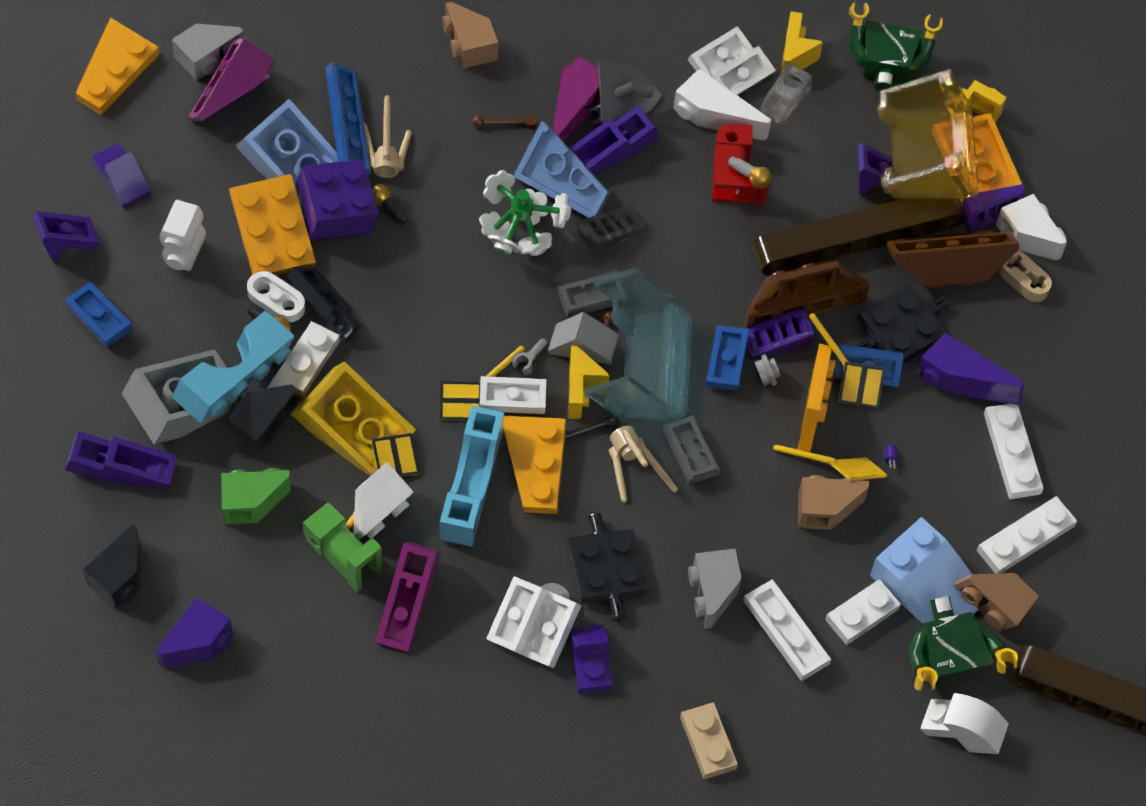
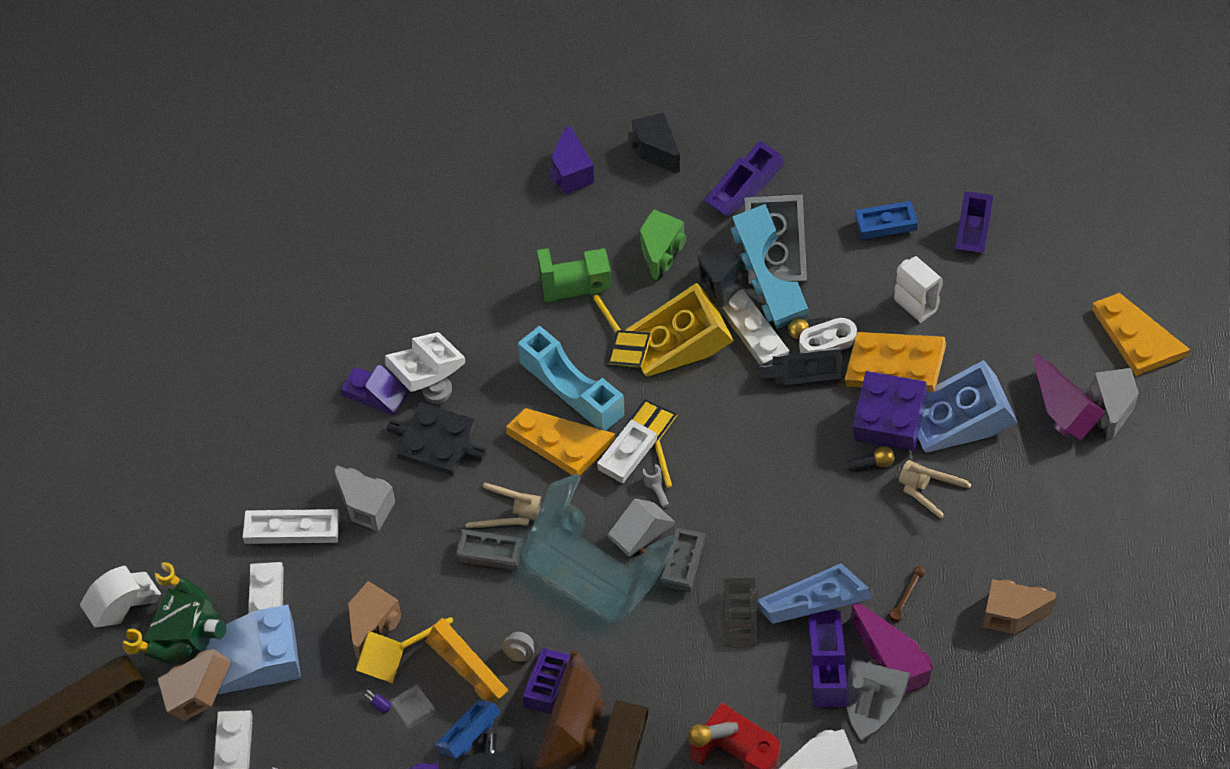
camera: 130 degrees right, 5 degrees down
(121, 174) = (1014, 291): dark purple slope -> none
(347, 114) = (976, 468): blue tile -> none
(378, 497) = (596, 313): white slope -> none
(408, 595) = (510, 300): magenta slope -> none
(525, 207) = (791, 525): white plant -> none
(582, 374) = (606, 502): yellow slope -> none
(708, 740) = (253, 430): tan plate -> none
(727, 358) = (552, 624): blue plate -> none
(860, 383) = (459, 708): piece -> none
(876, 426) = (412, 707): none -> clear tile

